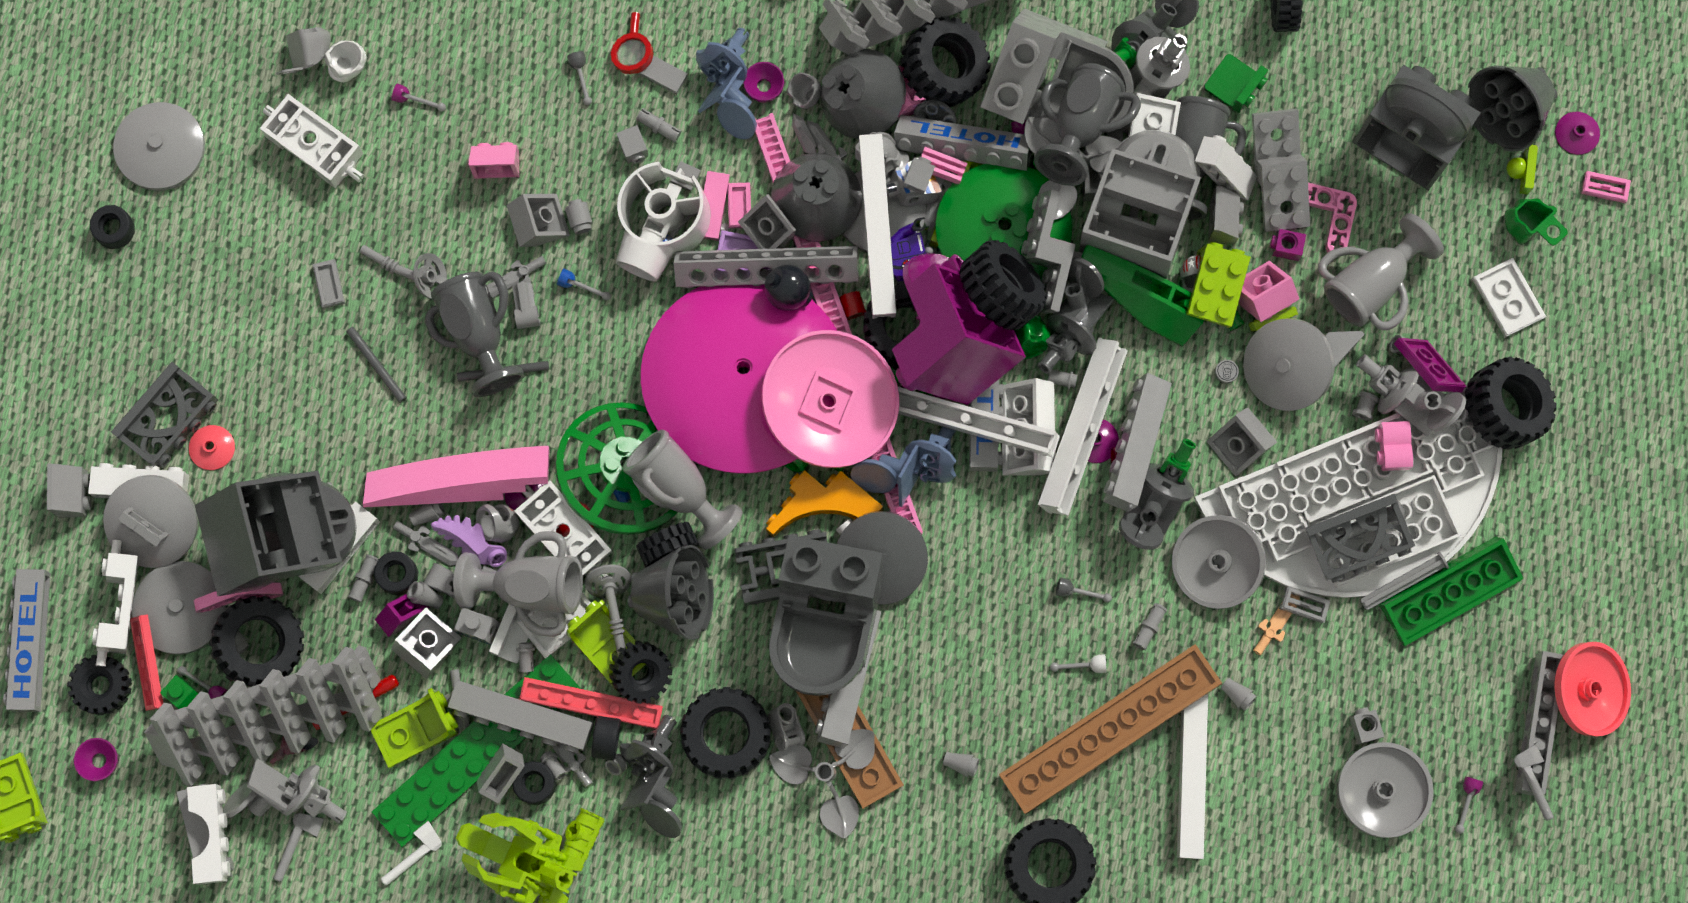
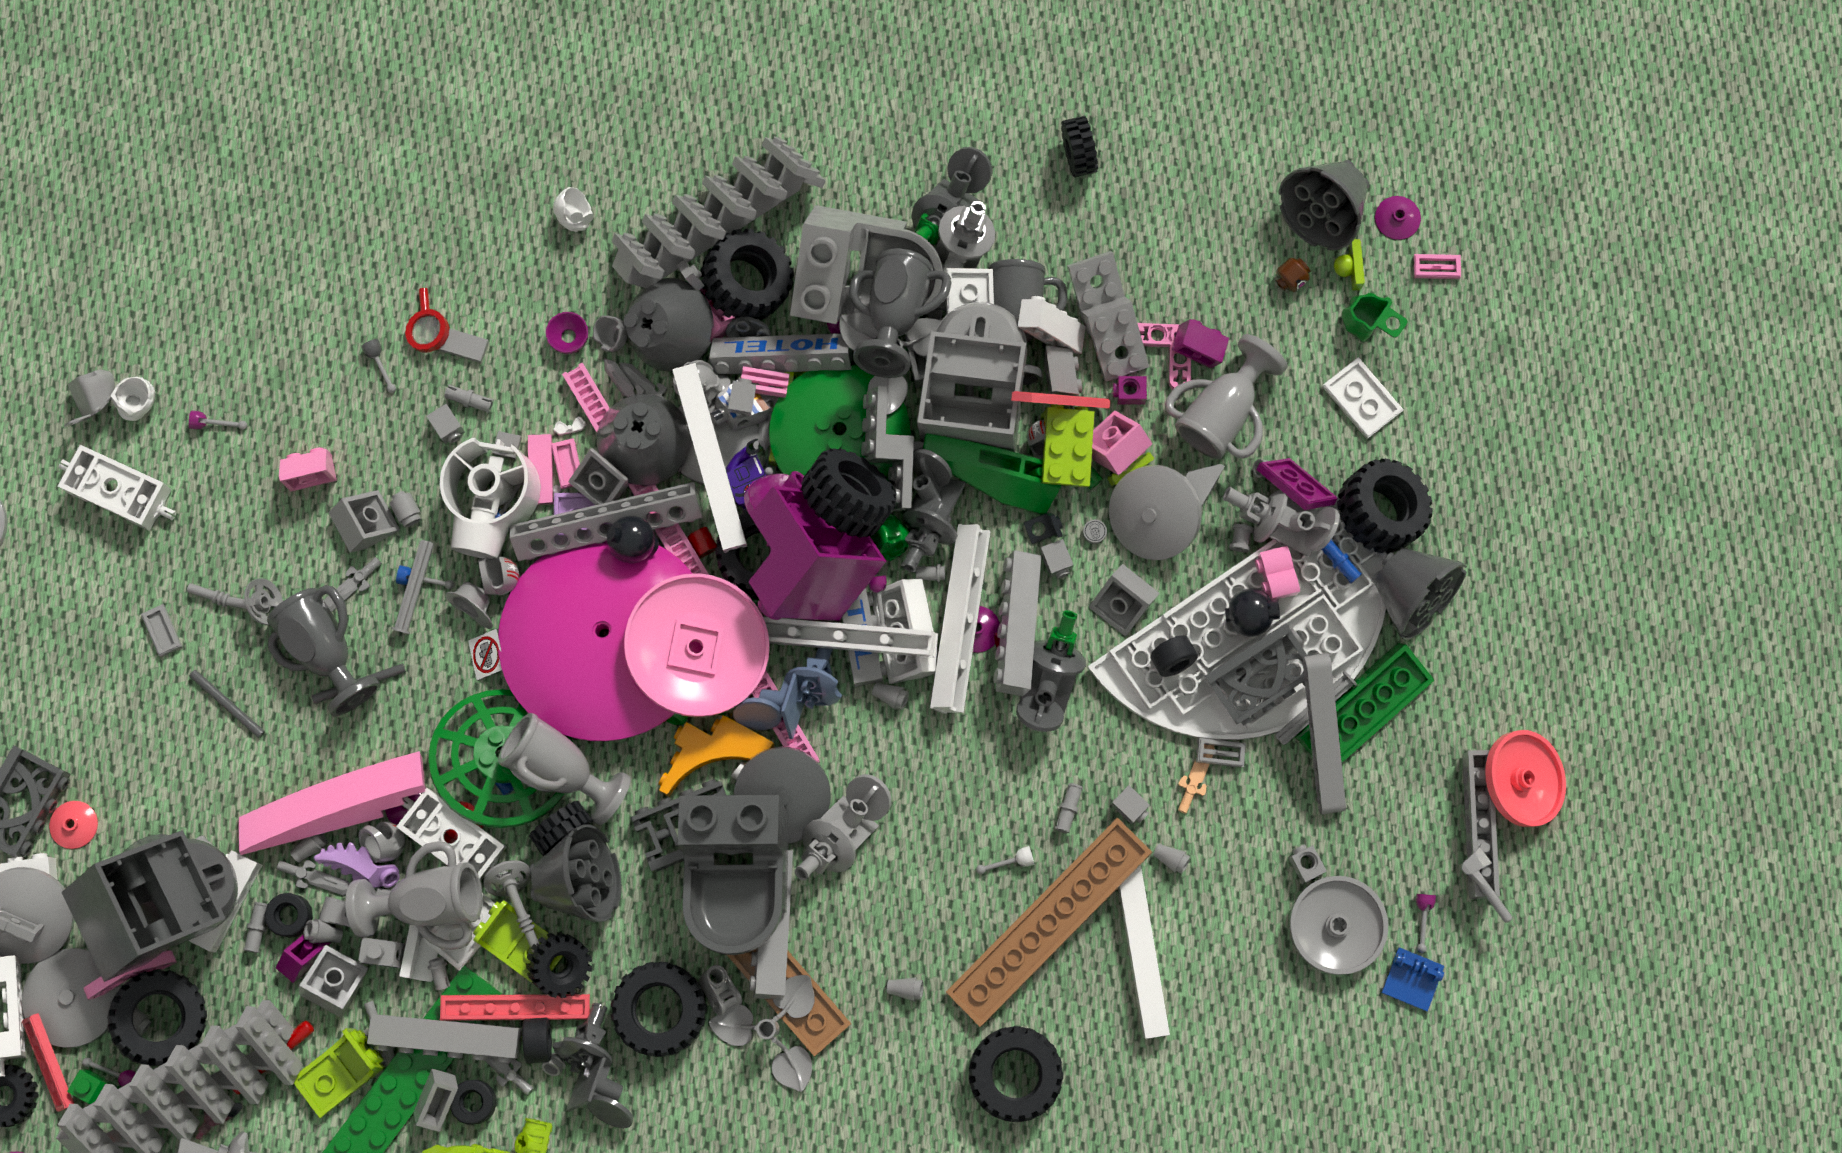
camera: 10 degrees left, 0 degrees up
(526, 312) = (369, 615): light grey piece -> none
(550, 760) = (486, 1075): light grey pin -> none
(572, 291) = (413, 586): none -> light grey axle
(624, 316) = (472, 601): none -> light grey piece
(628, 368) = (485, 654): none -> sticker
(654, 296) = (498, 575): none -> light grey helmet
(726, 68) = (523, 325): sand blue piece -> none
(756, 171) = (562, 429): none -> white piece
(893, 49) = (691, 274): none -> light grey plate
(935, 599) = (844, 827): none -> light grey piece
(1002, 485) = (892, 695): none -> light grey cone
(1010, 379) = (878, 585): none -> hinge
(1066, 588) = (976, 786): hinge -> none
(1185, 390) = (1057, 559): none -> light grey brick
(1187, 355) = (1052, 527): none -> black bracket
(1209, 636) = (1131, 805): none -> light grey brick
(1219, 561) = (1125, 727): light grey dish -> none
(1221, 238) = (1060, 399): none -> coral tile
(1235, 82) = (1045, 236): green bracket -> none
(1279, 503) = (1174, 656): none -> black tyre
(1362, 477) = (1252, 612): none -> black brick
(1364, 213) = (1200, 343): none -> magenta brick
(1408, 605) = (1324, 733): none -> light grey beam
(1417, 125) = (1235, 243): dark grey piece -> none
(1445, 856) = (1413, 979): none -> blue hinge
(1457, 447) = (1341, 562): none -> blue pin
(1465, 166) = (1292, 274): none -> reddish brown head
(1525, 486) = (1416, 587): none -> dark grey cone

